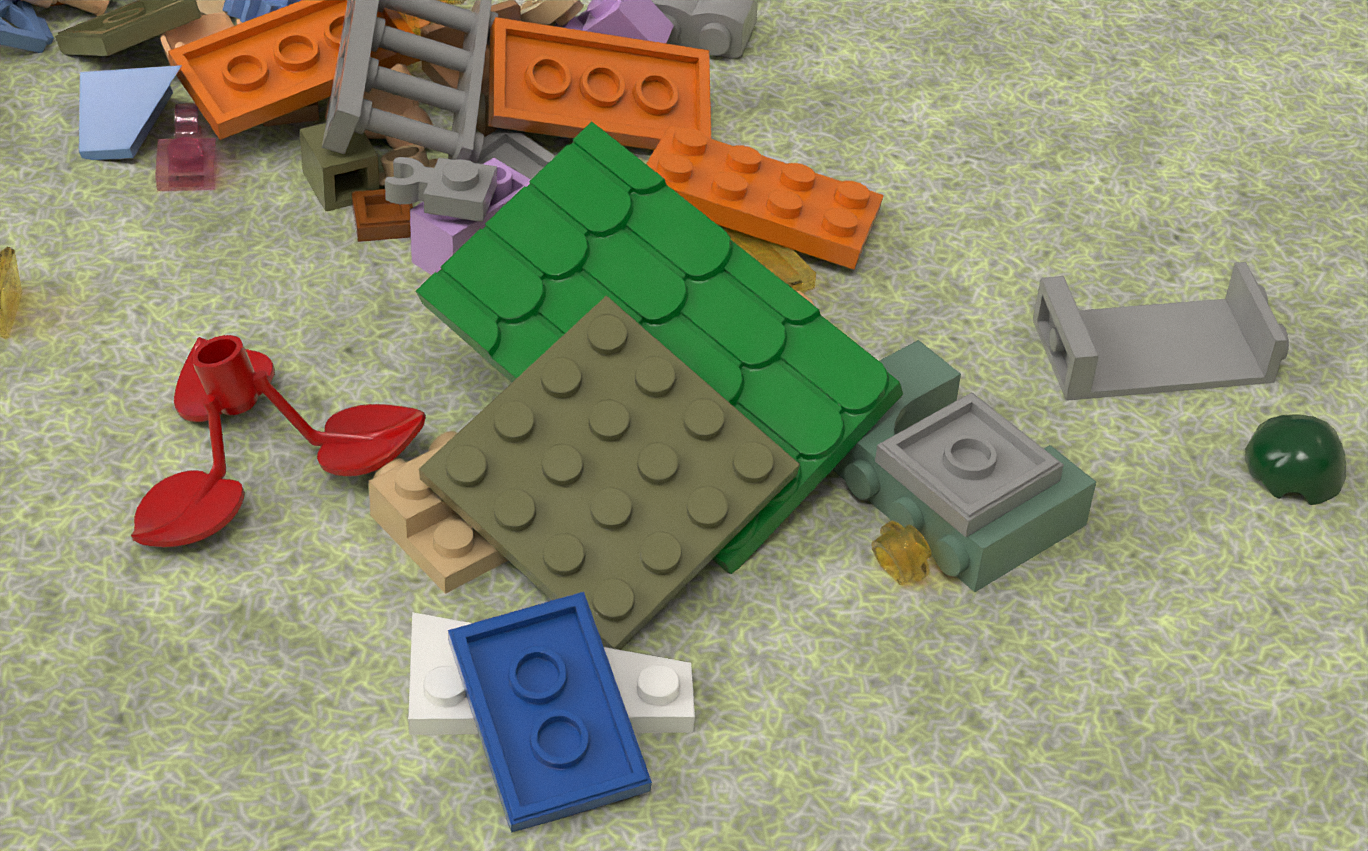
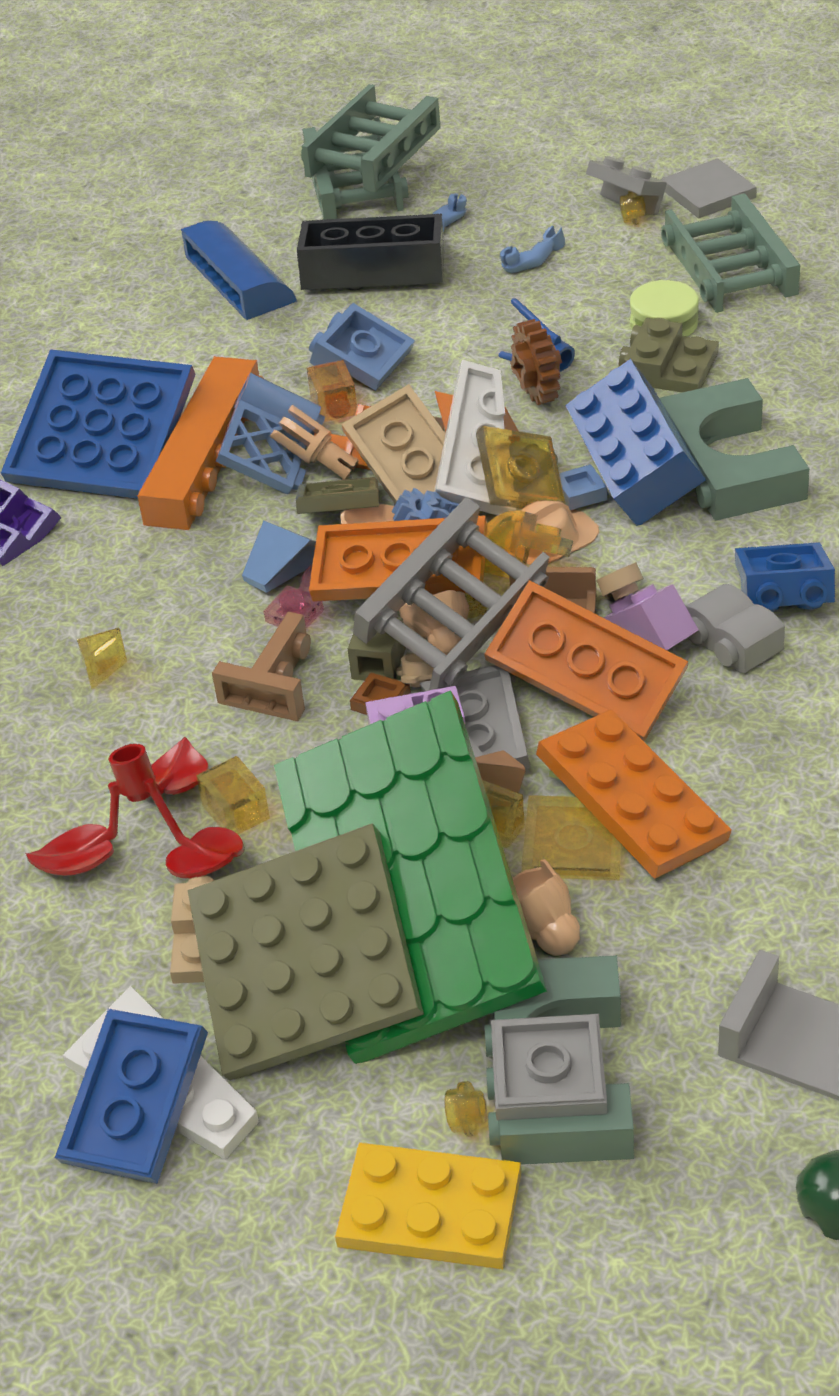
camera: 45 degrees right, 0 degrees up
(244, 247) = (269, 683): none -> medium nougat bracket
(329, 369) = (233, 796): none -> clear yellow brick
(448, 189) = (385, 696): light grey plate -> none
(950, 661) = (429, 1205): none -> yellow plate

